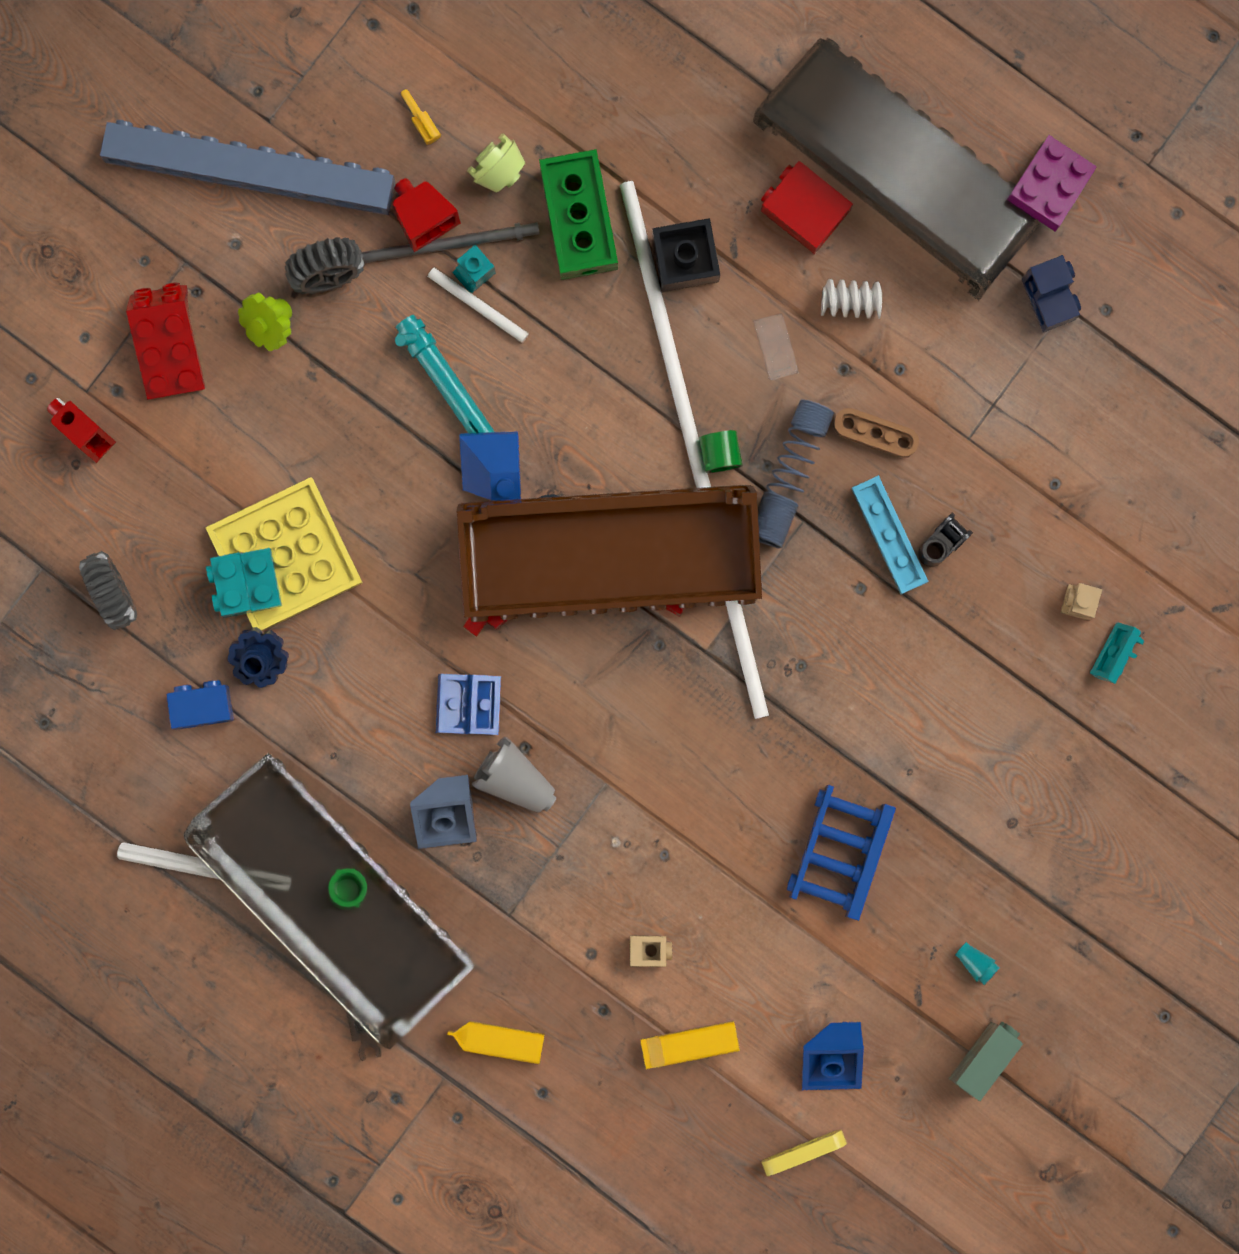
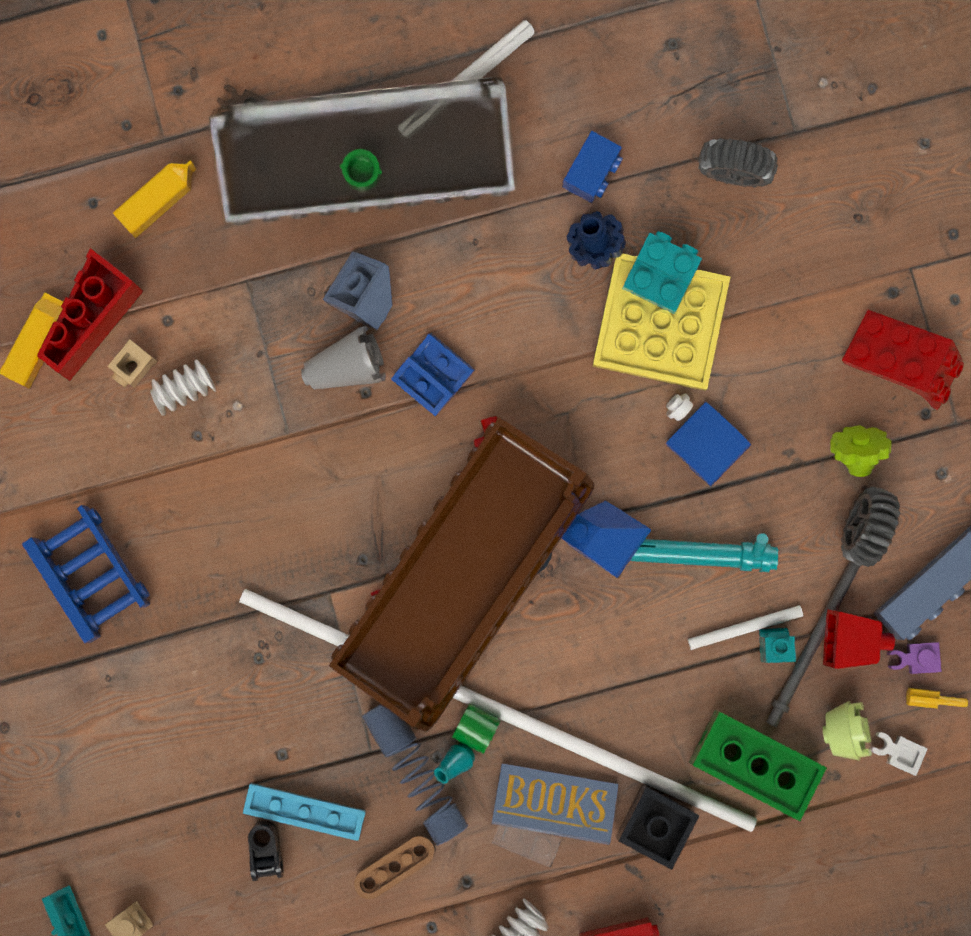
camera: 130 degrees right, 0 degrees up
(80, 429) = (883, 238): red torso -> none
(343, 488) = (679, 407): none -> white plate
(354, 443) = (708, 444): none -> blue slope
(396, 153) = (919, 657): none -> medium lavender plate
(482, 111) = (902, 754): none -> white plate
(632, 1017) = (88, 315): none -> red wedge
(635, 896) = (180, 387): none -> white piece
(730, 346) = (555, 804): none -> sand blue tile
(759, 447) = (455, 762): none -> teal cone

